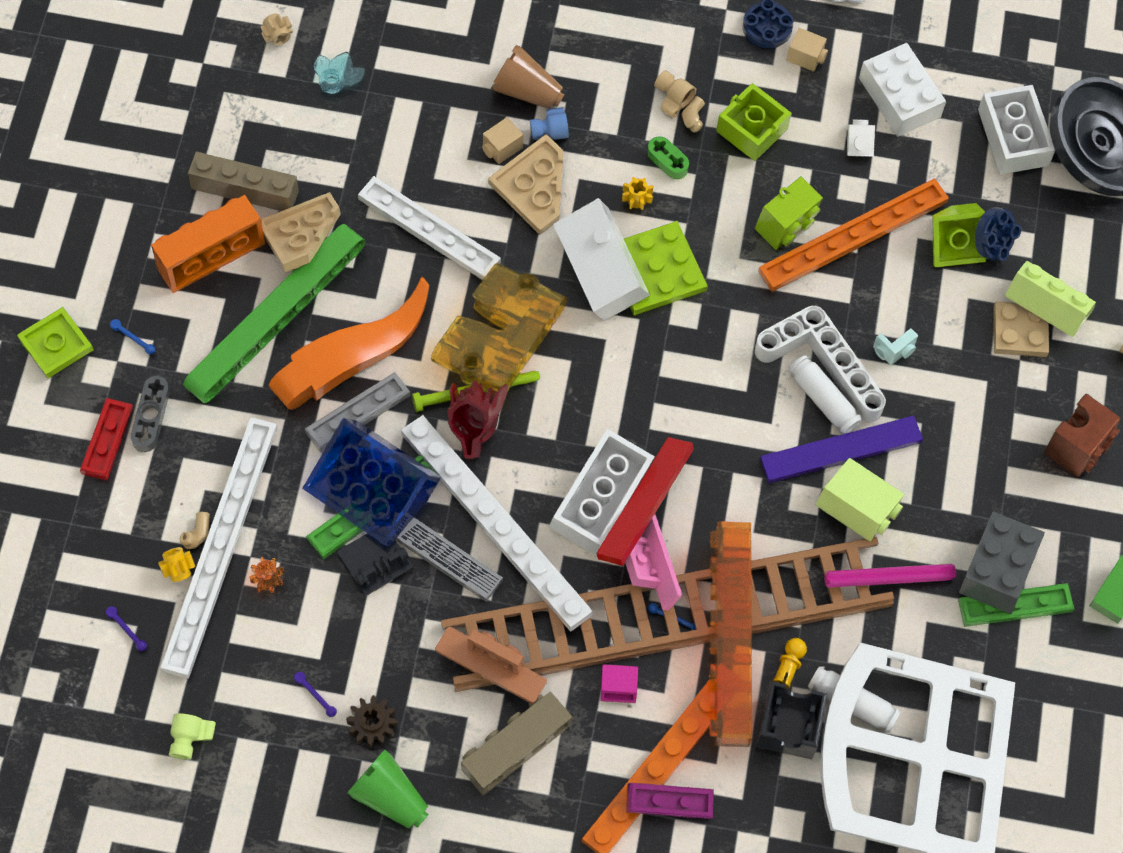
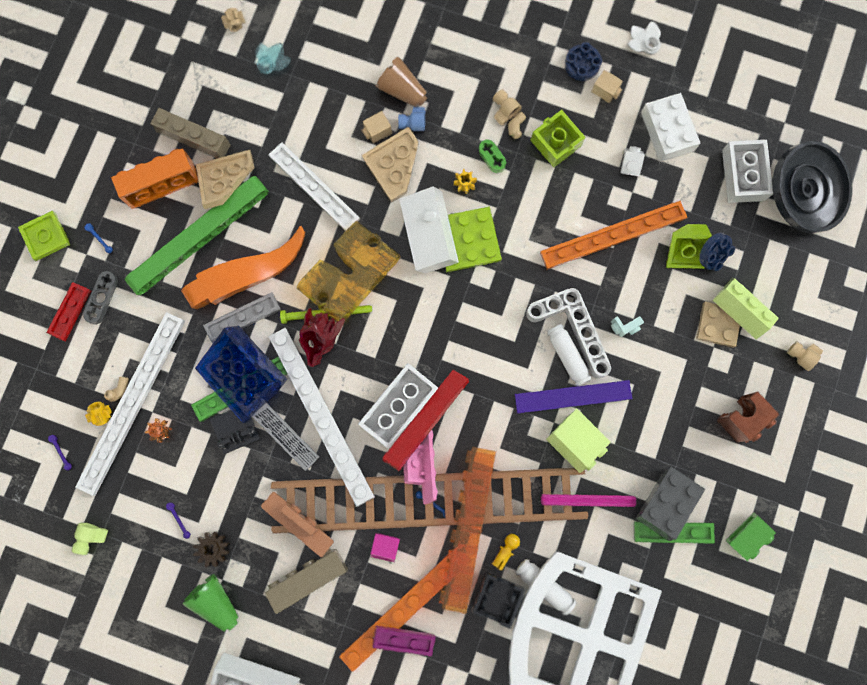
camera: 15 degrees right, 15 degrees up
(789, 213) = (568, 214): lime brick -> none

